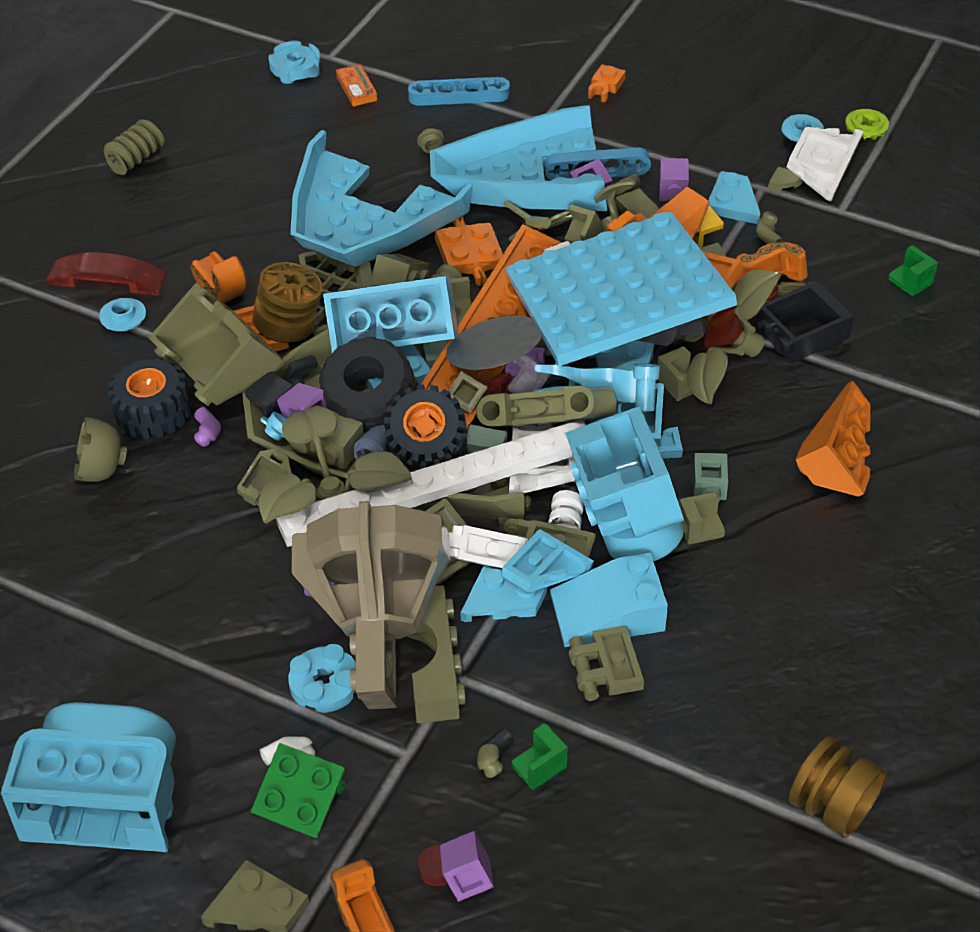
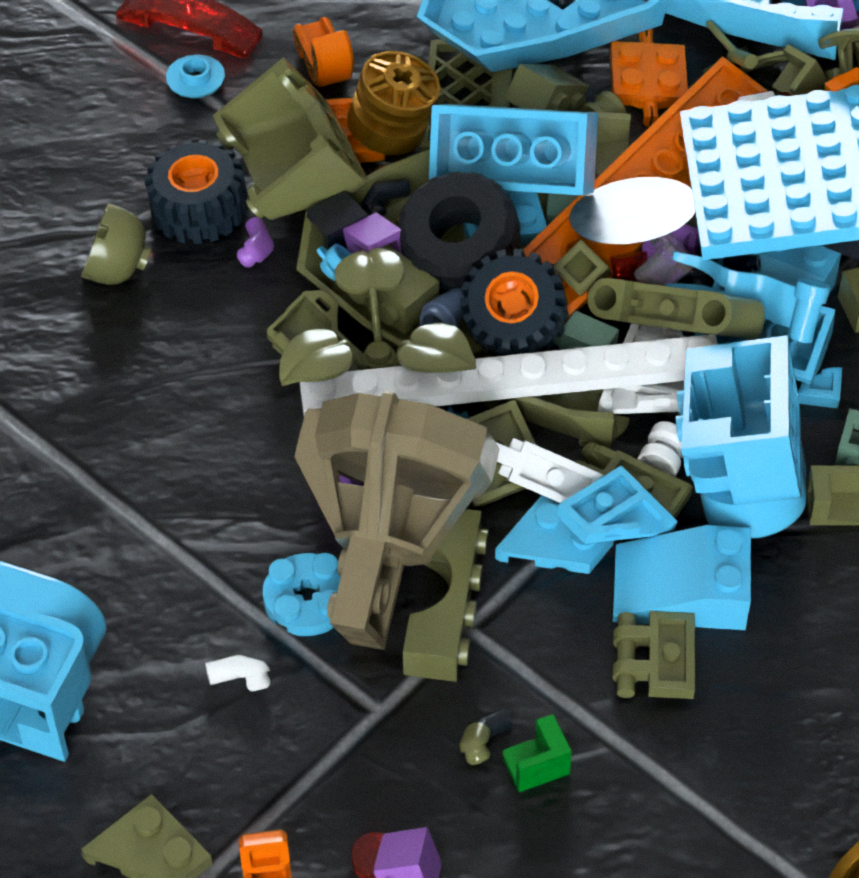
camera: 15 degrees right, 5 degrees up
(298, 790) = (236, 725): green hinge -> none

